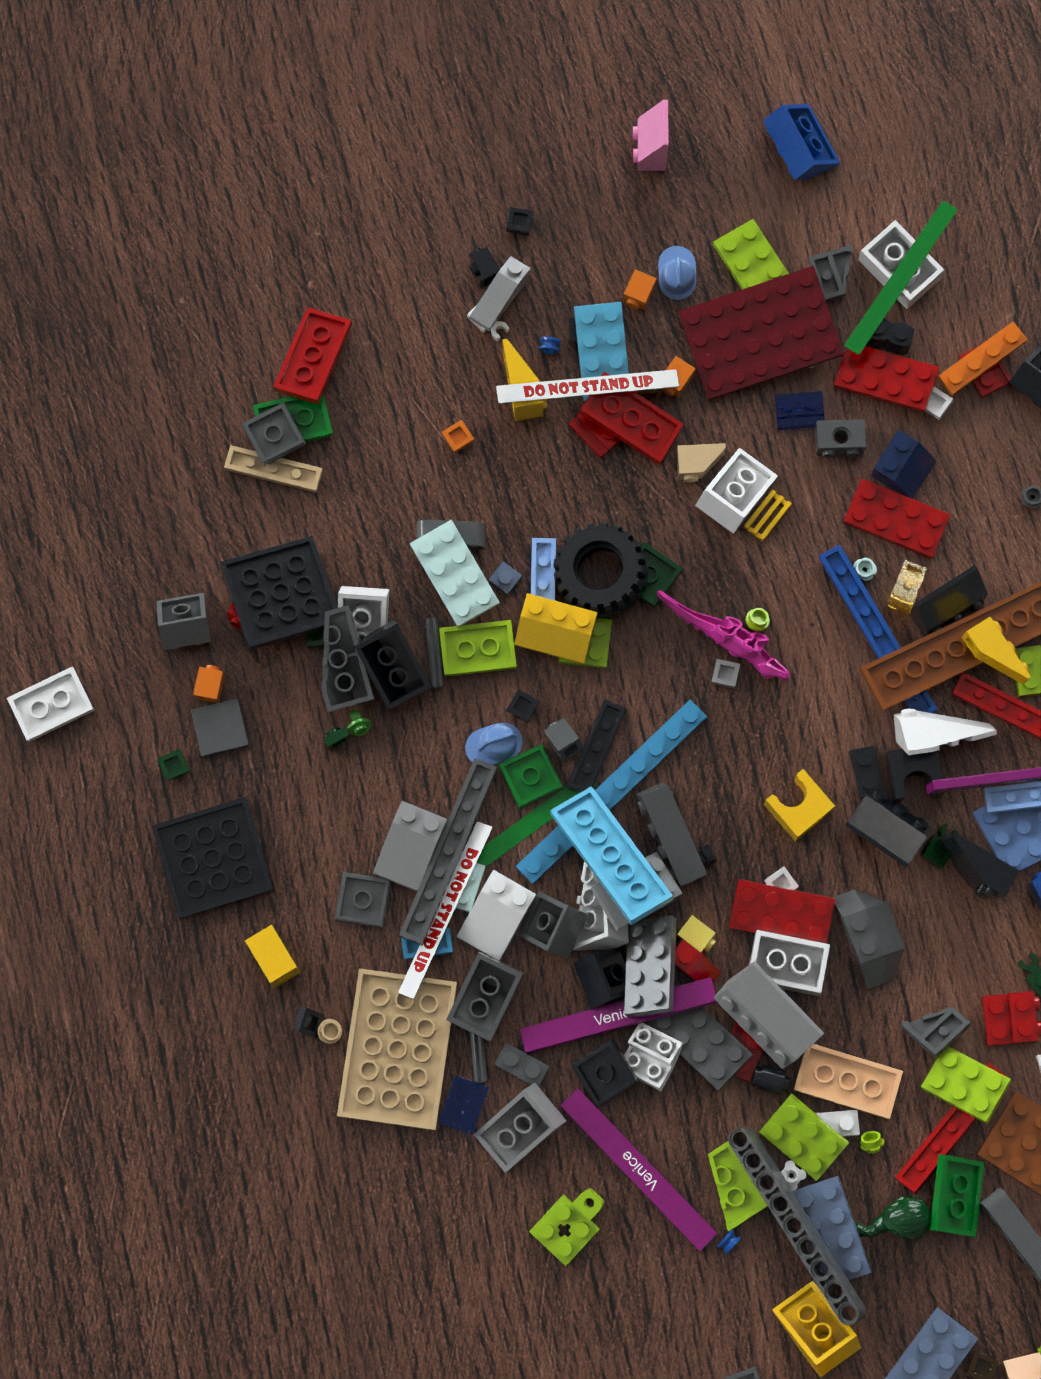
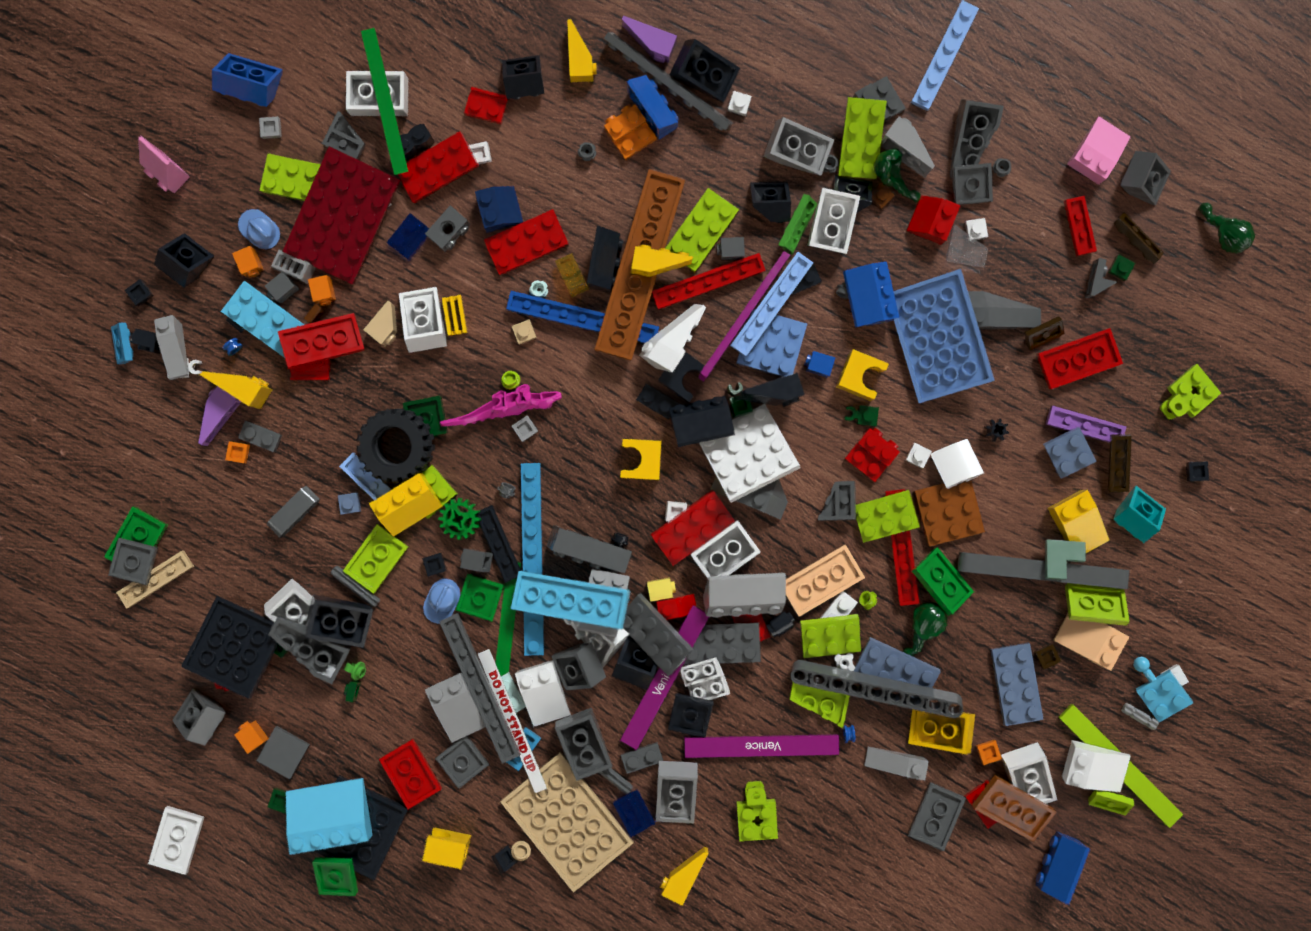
camera: 50 degrees left, 10 degrees up
(150, 878) = (335, 876): none -> green plate
(202, 819) = (327, 816): none -> medium azure slope
(308, 861) = (410, 773): none -> red plate
(312, 355) = (106, 493): red plate -> none
(442, 1209) = (682, 878): none -> yellow slope
(454, 573) = (317, 532): light aqua plate -> none
(460, 247) = (121, 342): none -> dark azure plate
(476, 386) = (217, 411): none -> medium lavender slope
(491, 443) = (260, 436): none -> dark grey plate
(583, 699) = (463, 525): none -> green gear
(586, 232) = (183, 260): none -> black slope
(587, 386) = (276, 350): white sticker -> none
(644, 340) = (281, 288): none -> dark grey brick
(652, 709) = (506, 490): none -> dark grey plate
(676, 347) = (304, 270): none -> light grey slope
(743, 1313) = (897, 763): none -> light grey slope
(778, 200) = (270, 127): none -> light grey plate
(813, 592) = (524, 332): none -> tan plate
(901, 901) = (751, 456): none -> white plate
(982, 358) = (478, 101): orange plate -> none

